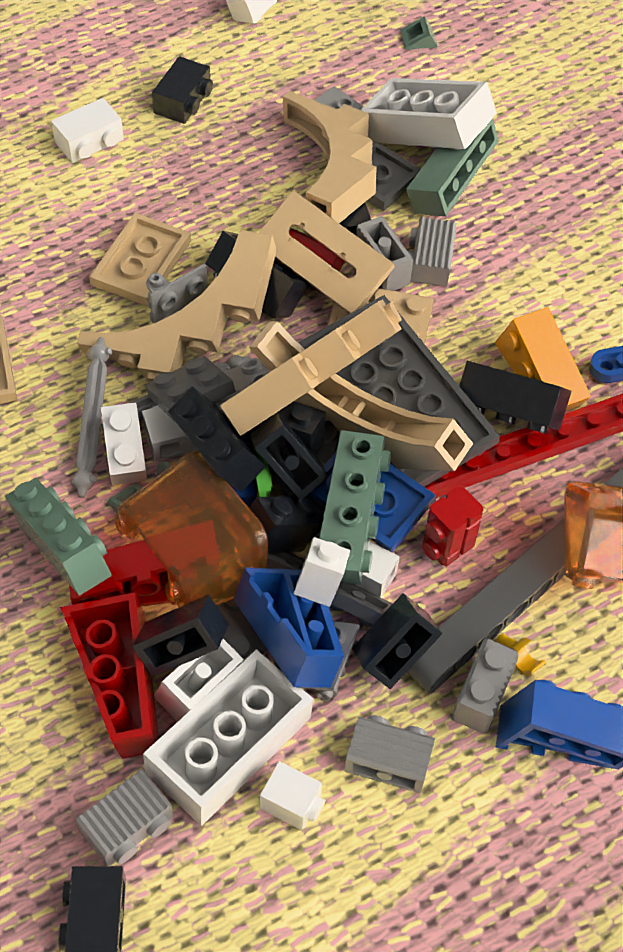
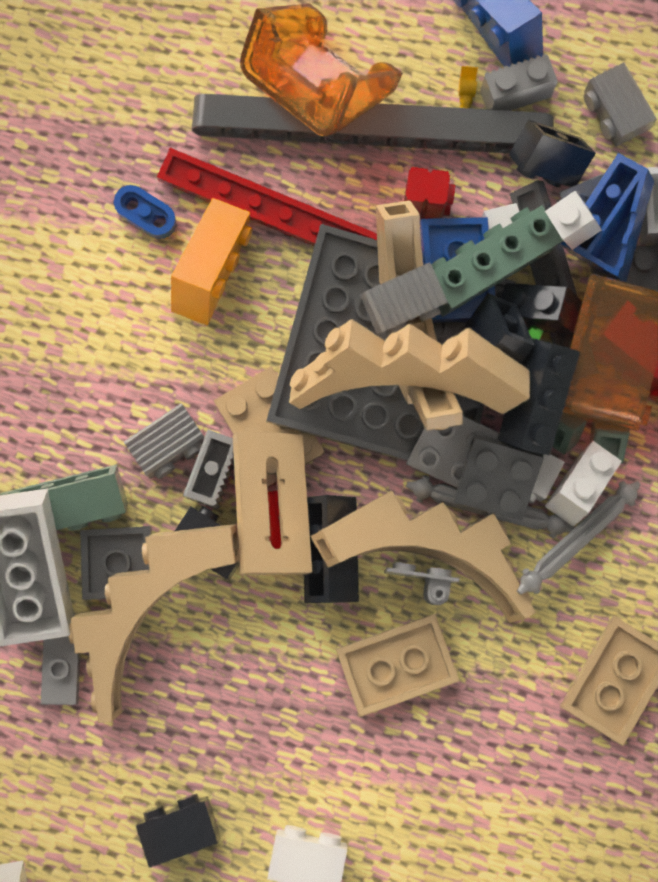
camera: 130 degrees left, 25 degrees up
(378, 395) = (404, 299): none -> light grey brick
(515, 397) = (269, 247): black brick -> none

